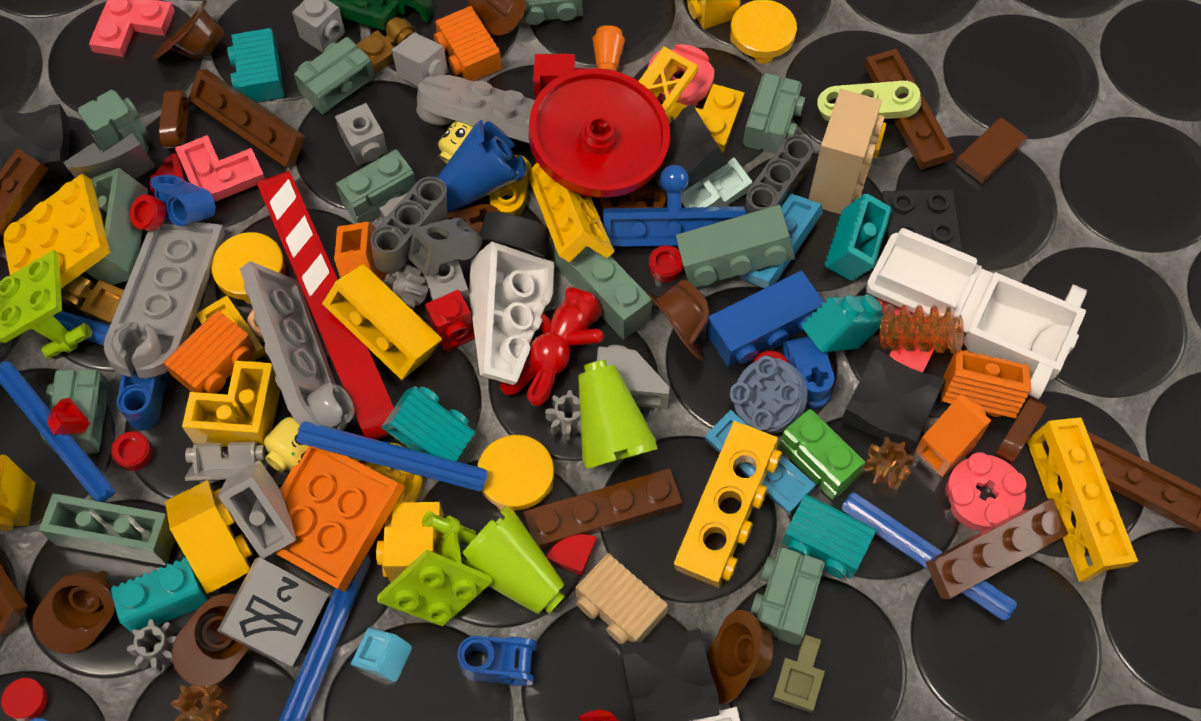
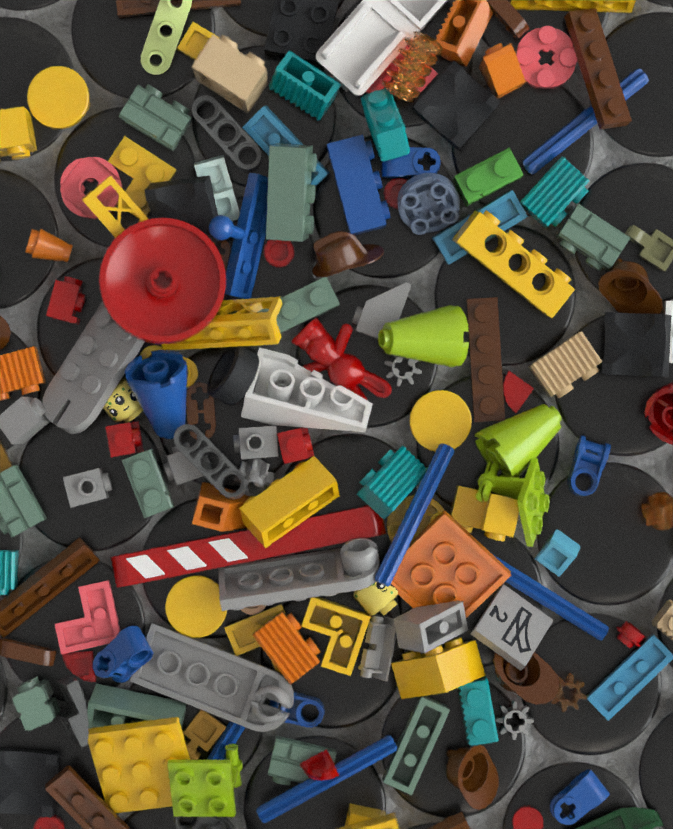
camera: 80 degrees left, 25 degrees up
(132, 451) = (343, 722): red tile -> none
(147, 213) = (132, 684): red tile -> none
(421, 153) = (124, 439): none -> red brick
(442, 243) = (237, 437): dark grey leg -> none
(896, 456) = (513, 121): clear orange gear -> none

